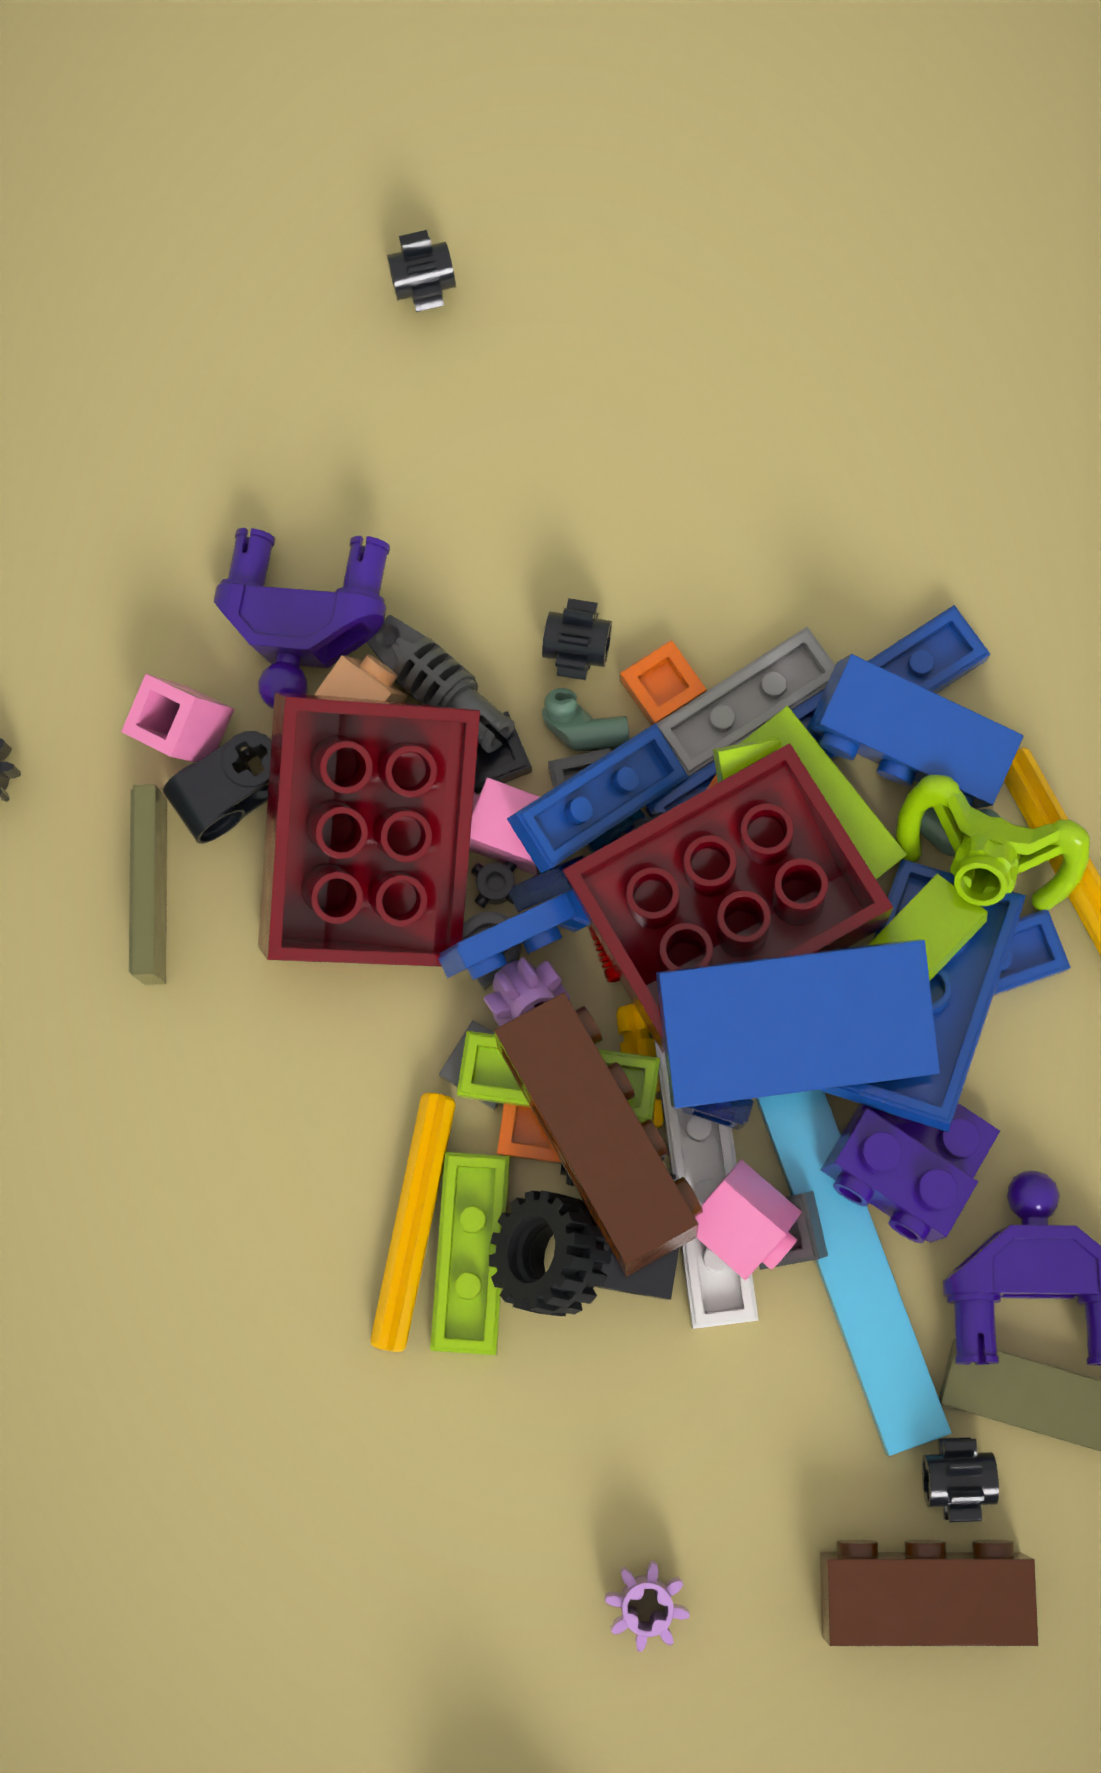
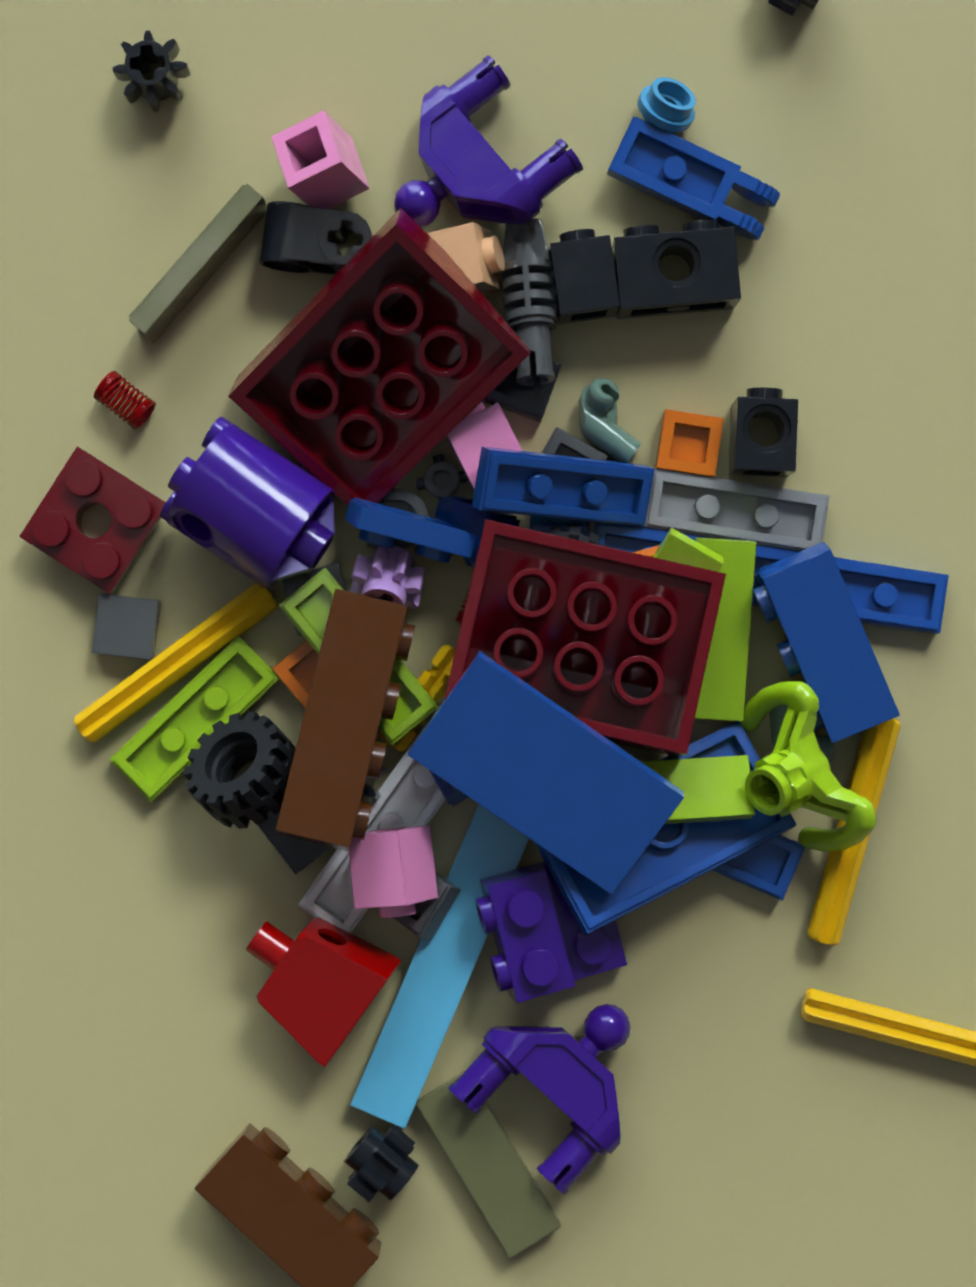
camera: 35 degrees right, 10 degrees up
(188, 1052) = (109, 388): none -> red piece
(210, 1142) = (57, 520): none -> dark red piece
(346, 1229) = (126, 626): none -> dark grey tile
(364, 1033) = (251, 506): none -> dark purple cylinder
(410, 449) = (667, 105): none -> dark azure plate
(466, 627) = (584, 277): none -> black brick
(477, 487) = (688, 177): none -> blue hinge
(521, 597) = (711, 261): none -> black brick
(577, 639) = (656, 357): black gear -> none
(658, 1621) = (106, 1068): lavender gear -> none
(719, 650) = (745, 455): none -> black brick
(772, 1373) = (319, 982): none -> red torso

